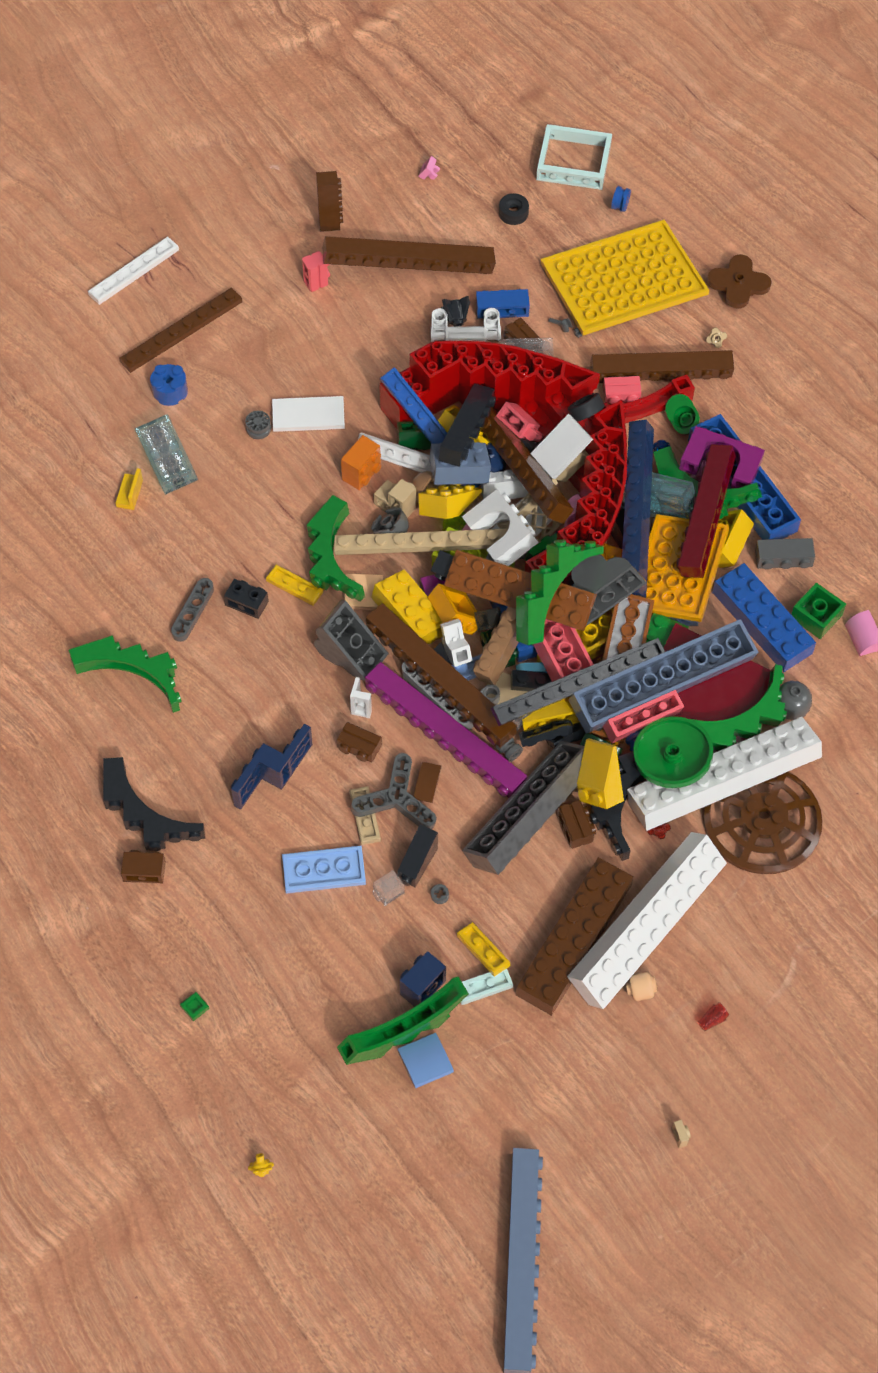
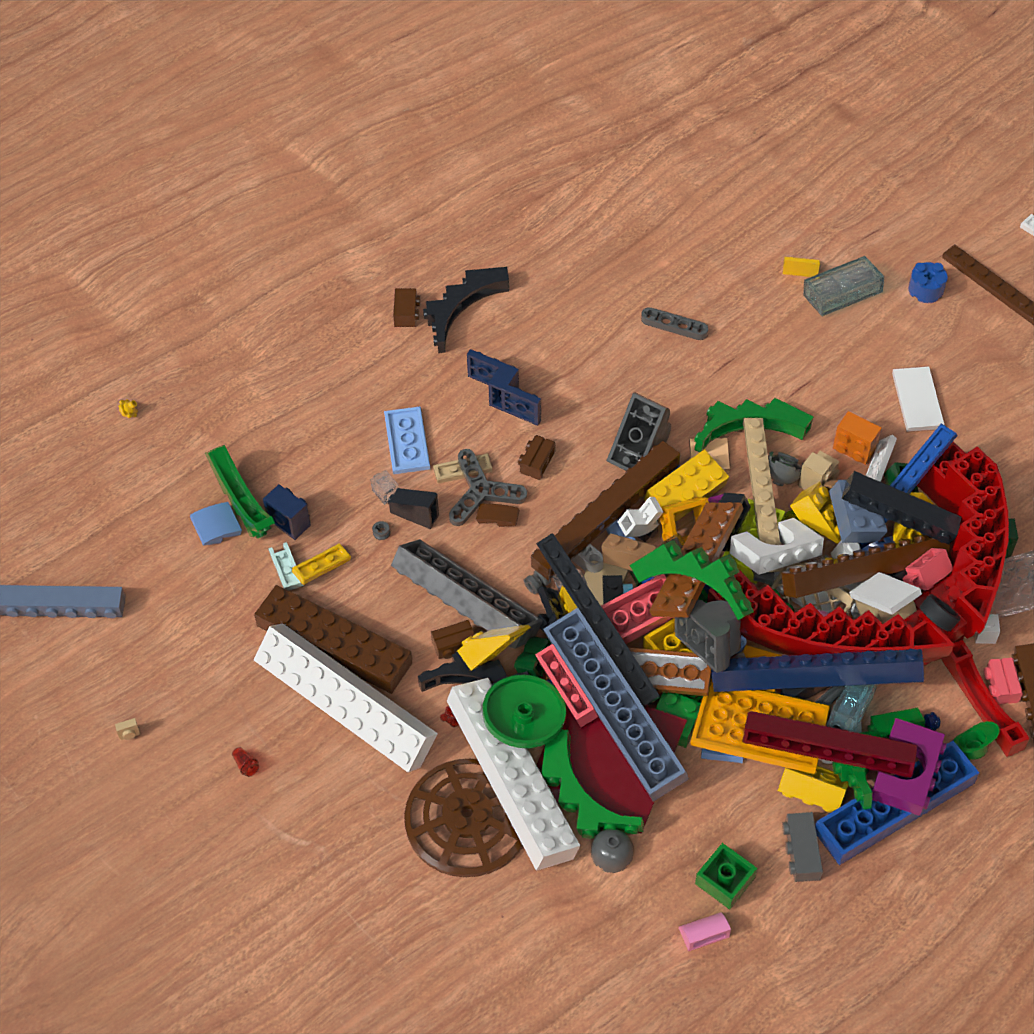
camera: 90 degrees right, 5 degrees down
(108, 655) = (605, 299): green arch -> none
(194, 1006) = (276, 356): green tile -> none
(246, 598) = (689, 360): black brick -> none
(258, 425) = (894, 357): dark grey wheel -> none
(294, 585) = (715, 392): yellow tile -> none
(360, 701) = (581, 447): white panel -> none
(445, 730) = (517, 563): magenta brick -> none
(642, 986) = (278, 697): light nougat head -> none
(764, 617) = (713, 820): blue brick -> none

